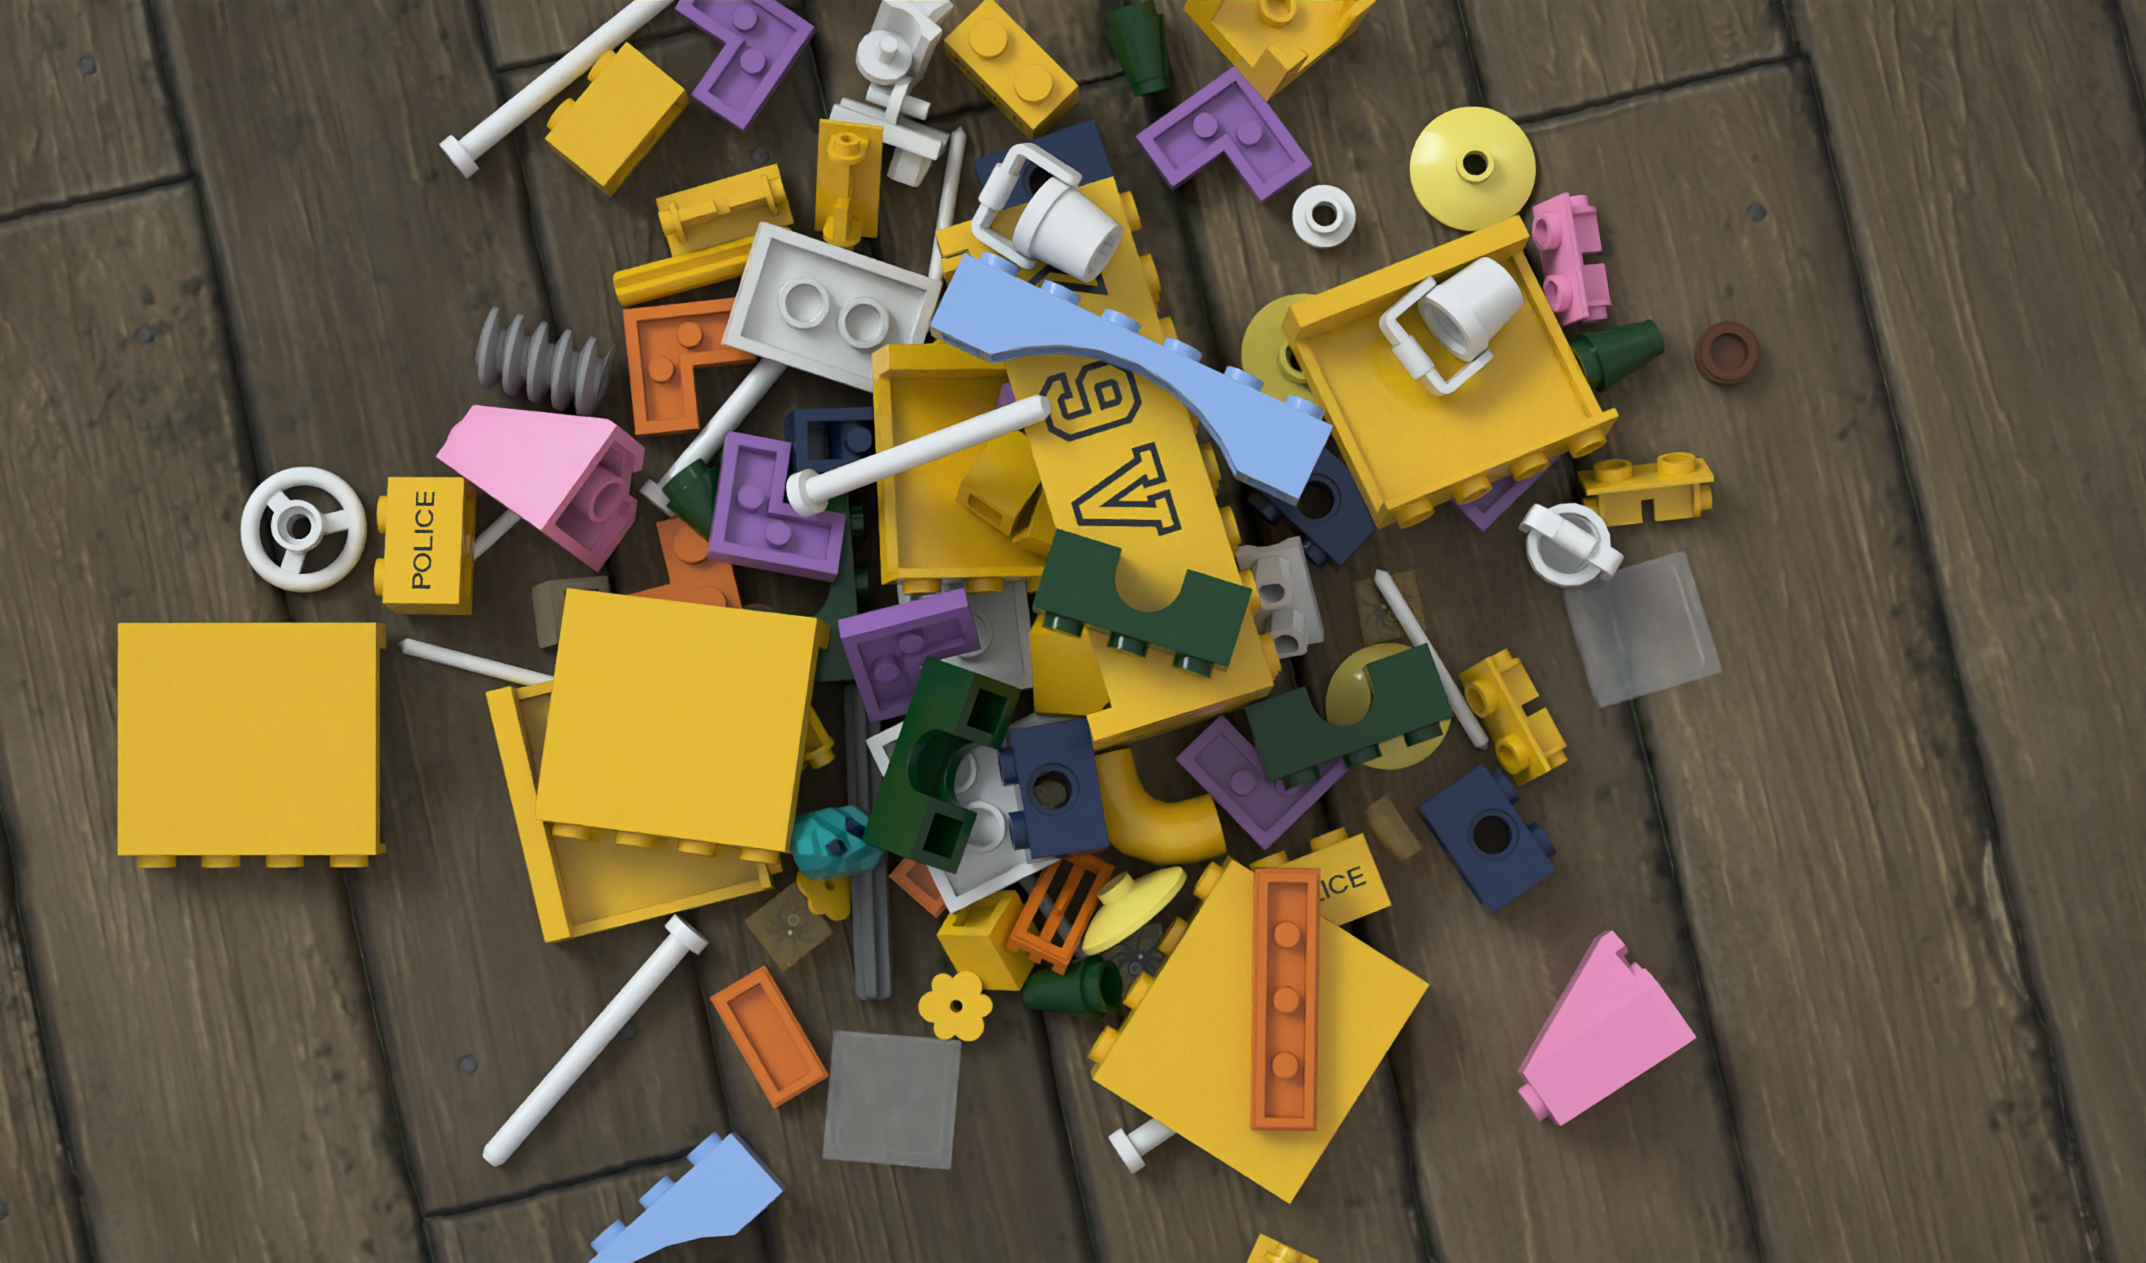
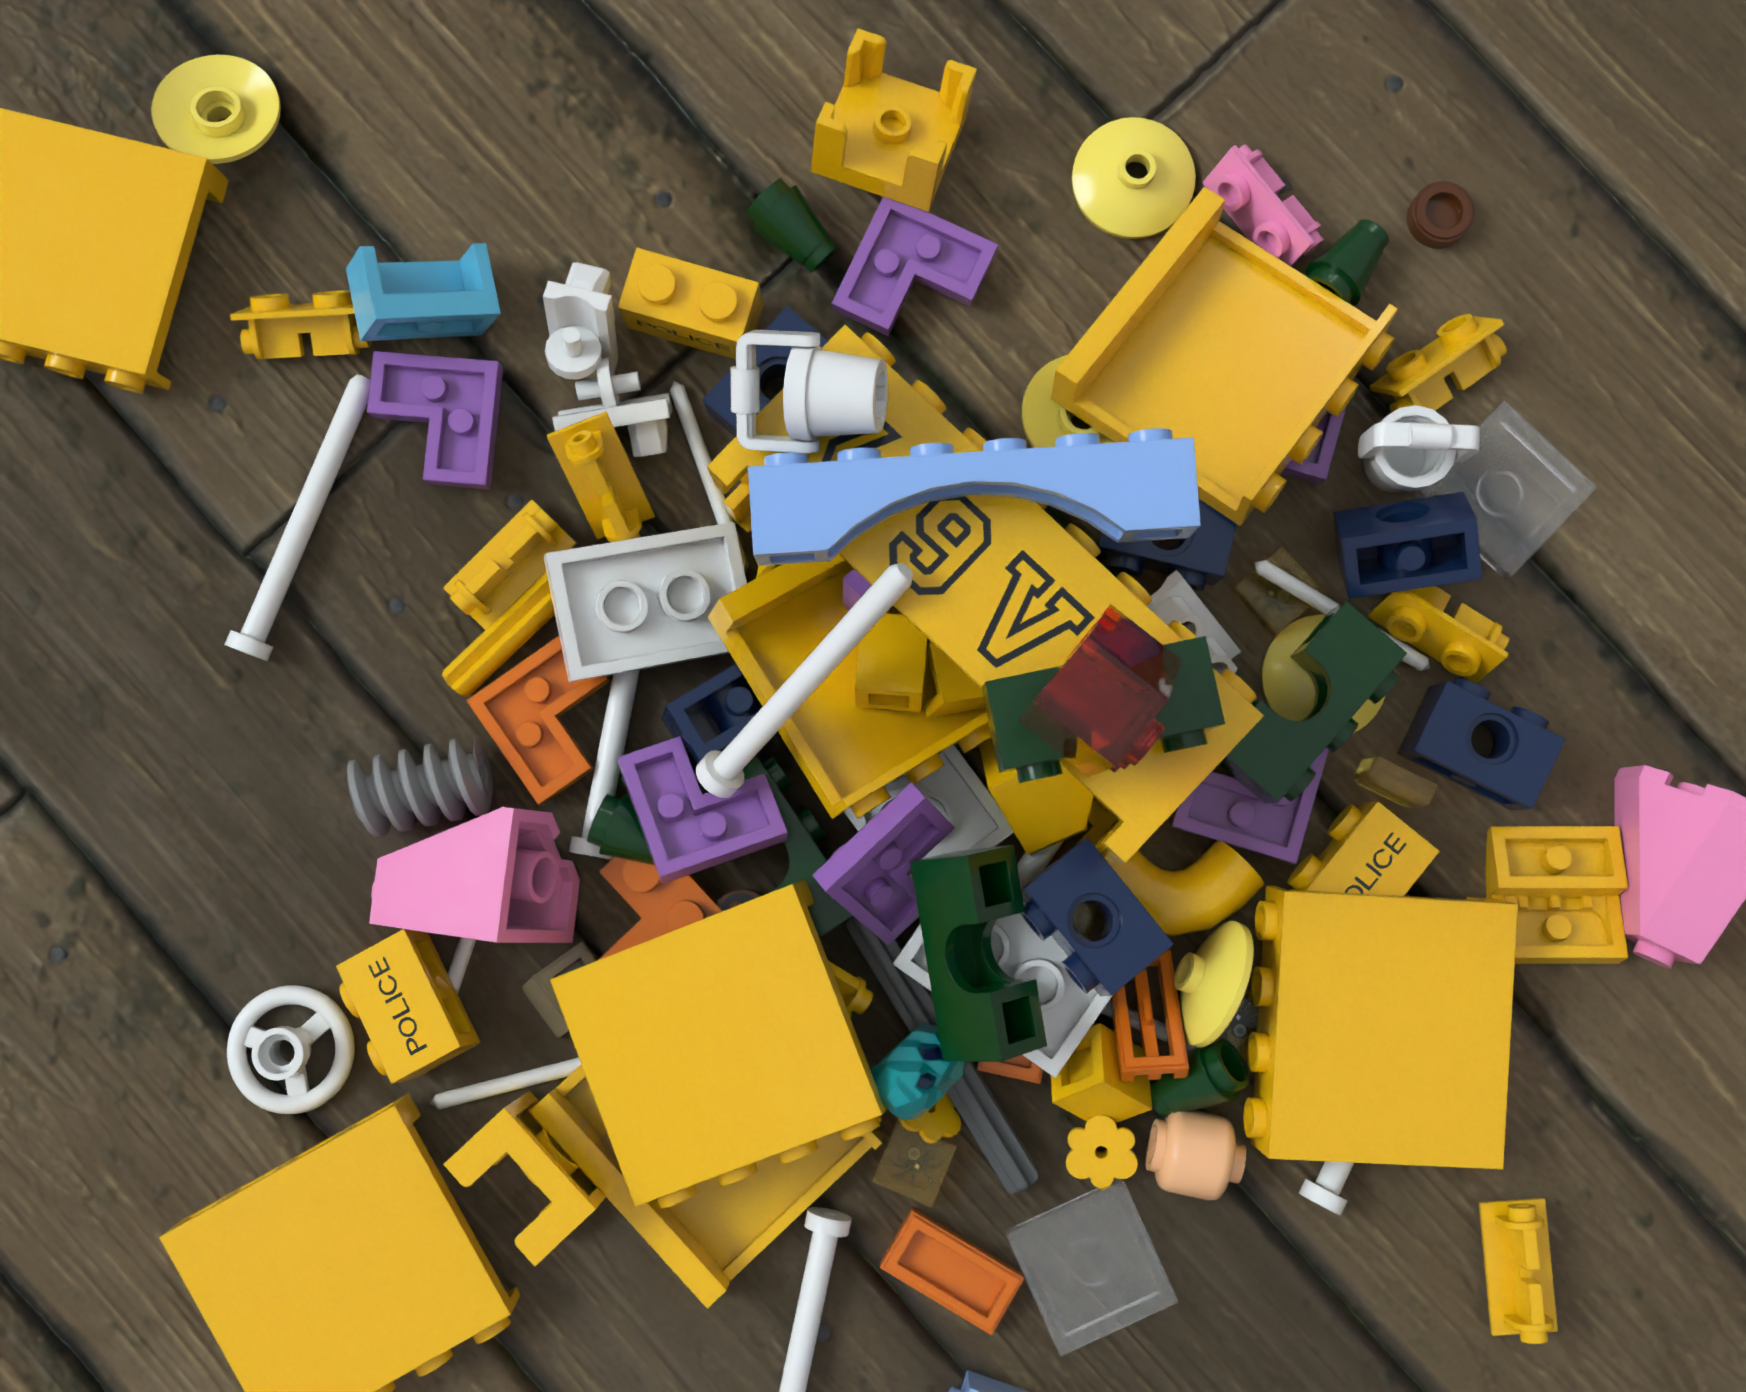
camera: 25 degrees left, 0 degrees up
(465, 701) = (545, 1165): none -> yellow panel
(616, 118) = (368, 535): yellow brick -> none
(1035, 1051) = (1195, 1154): none -> light nougat head
(1138, 581) = (1106, 697): none -> clear red wedge
(1285, 999) = (1402, 990): orange tile -> none
(1323, 236) = (1031, 304): white plate -> none
(1460, 315) = (1205, 303): white piece -> none
(1482, 1007) = (1564, 891): none -> yellow slope
(1515, 626) = (1408, 545): none -> dark blue brick

